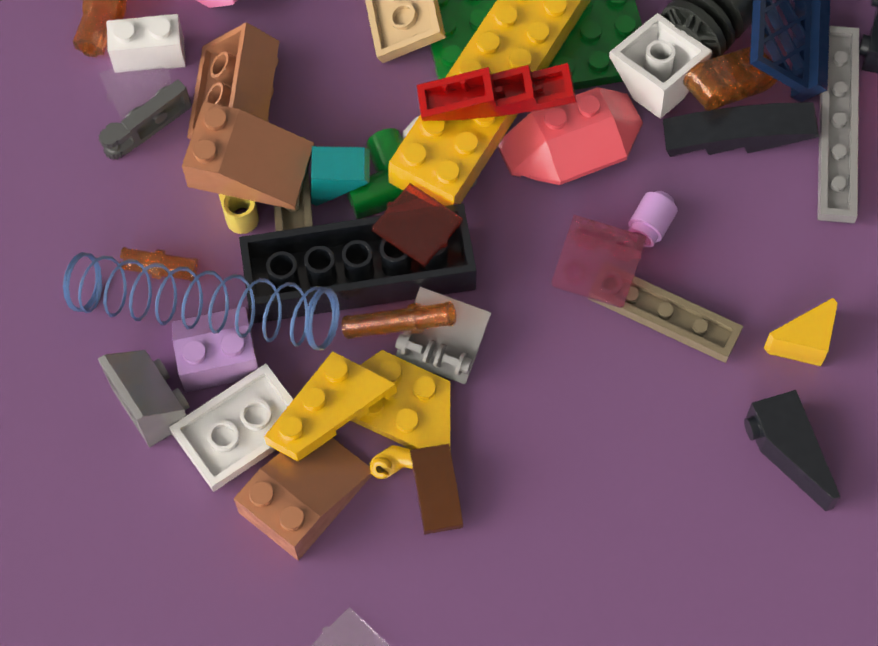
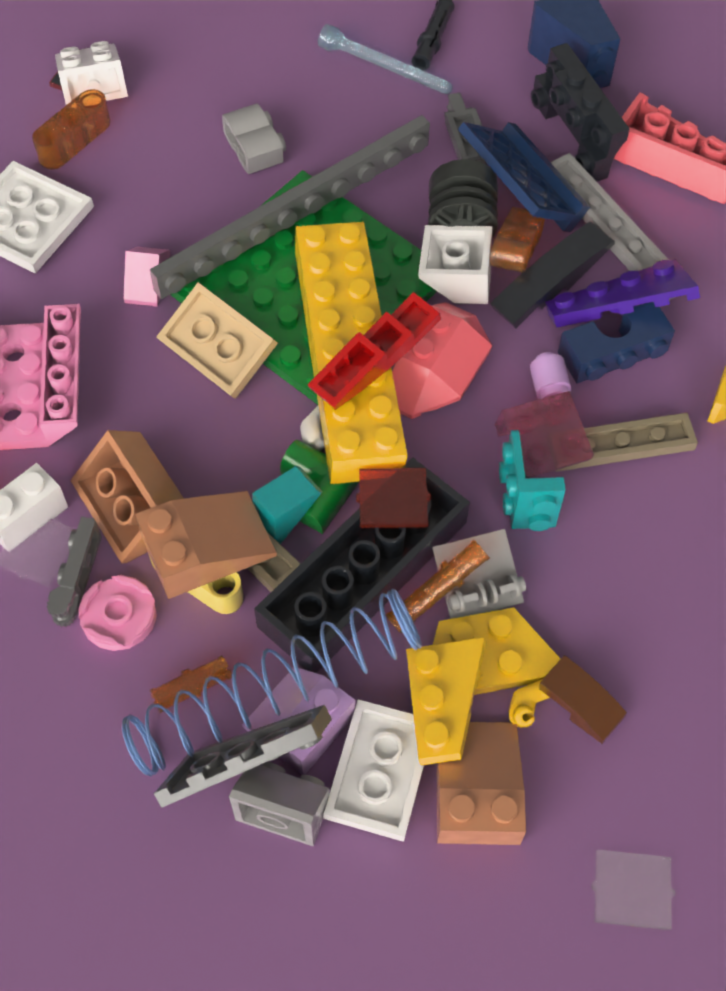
camera: 40 degrees left, 5 degrees down
(137, 336) = (241, 753): none -> dark grey wing
(152, 174) = (117, 613): none -> bright pink tile
(532, 306) = (532, 501): none -> teal bracket
(767, 238) = (592, 354): none -> dark blue arch
(792, 187) = (622, 294): none -> dark purple wing

